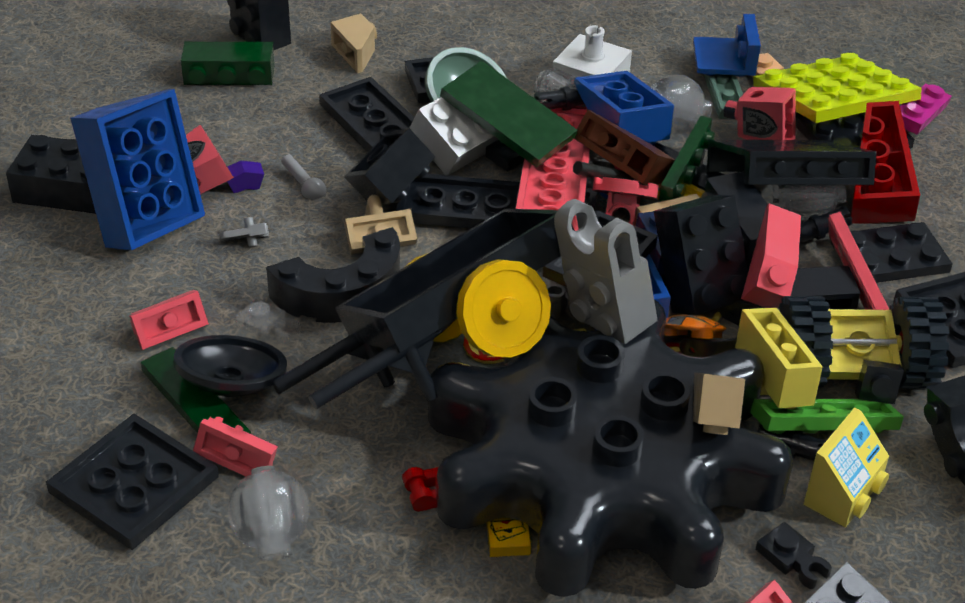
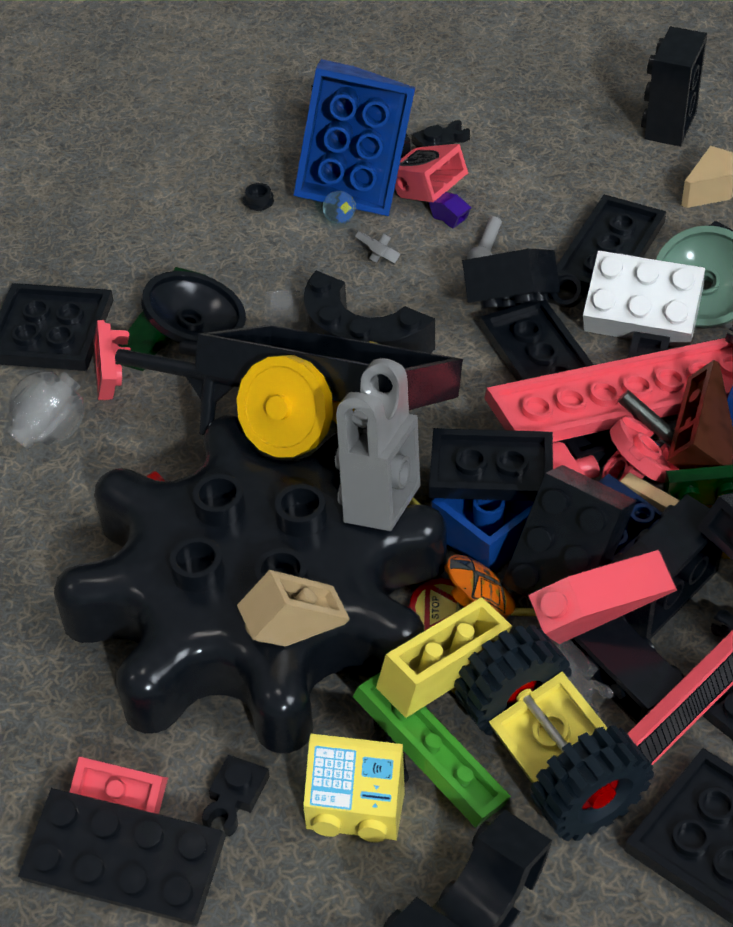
camera: 65 degrees right, 5 degrees up
(99, 275) = (258, 197): none -> black plate
(168, 319) = (231, 255): coral plate -> none
(175, 231) = (339, 207): none -> clear light blue tile
(227, 63) = (595, 124): dark green brick -> none
(377, 220) = (452, 321): tan plate -> none
(508, 113) = (656, 312): dark green tile -> none
(879, 381) = (511, 773): black plate -> none

